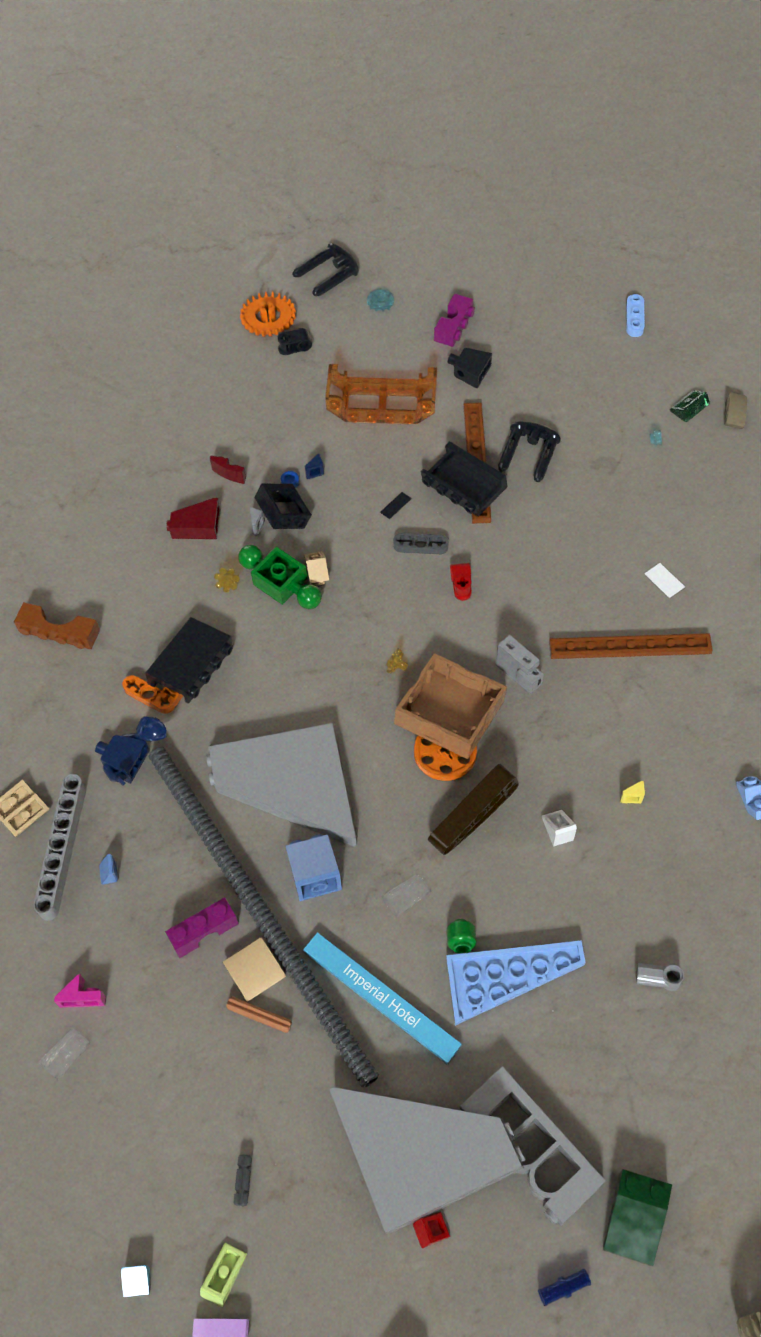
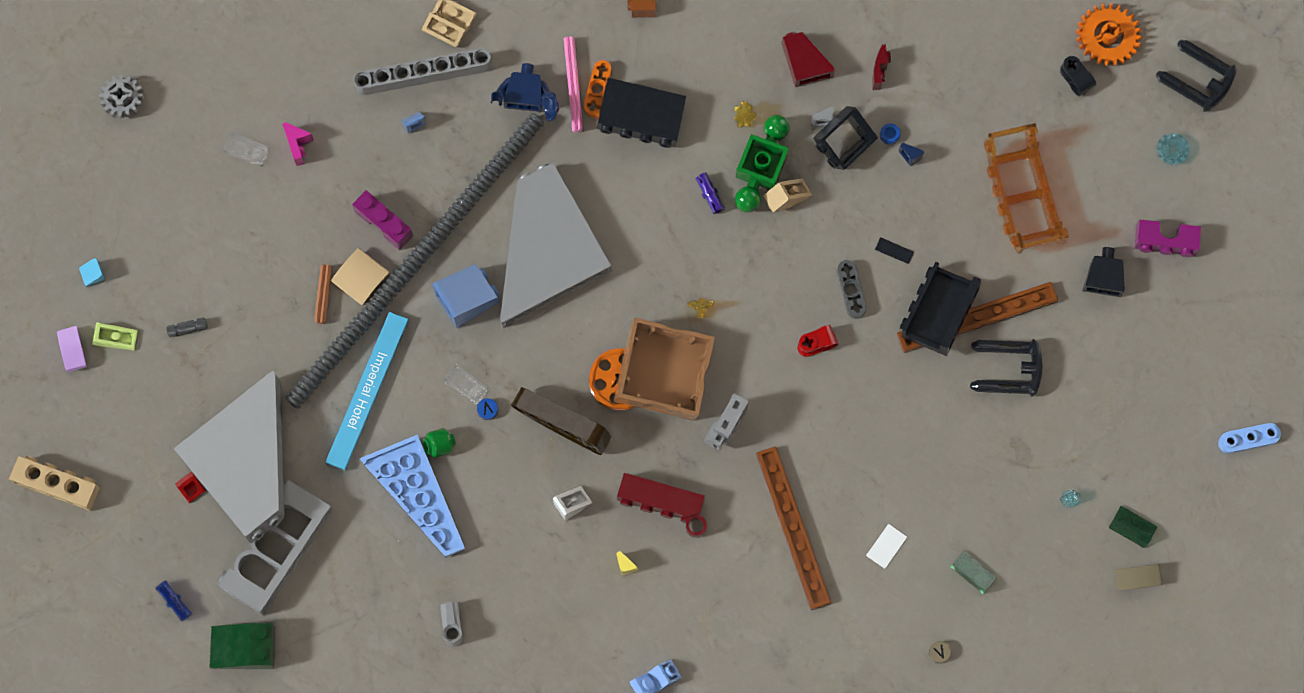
camera: 70 degrees right, 15 degrees up
(133, 713) = (573, 84): none -> bright pink axle
(289, 628) = (710, 193): none -> dark purple pin
(437, 881) = (487, 409): none -> blue tile
(577, 742) = (664, 499): none -> dark red hinge
(705, 522) = (973, 572): none -> clear green slope

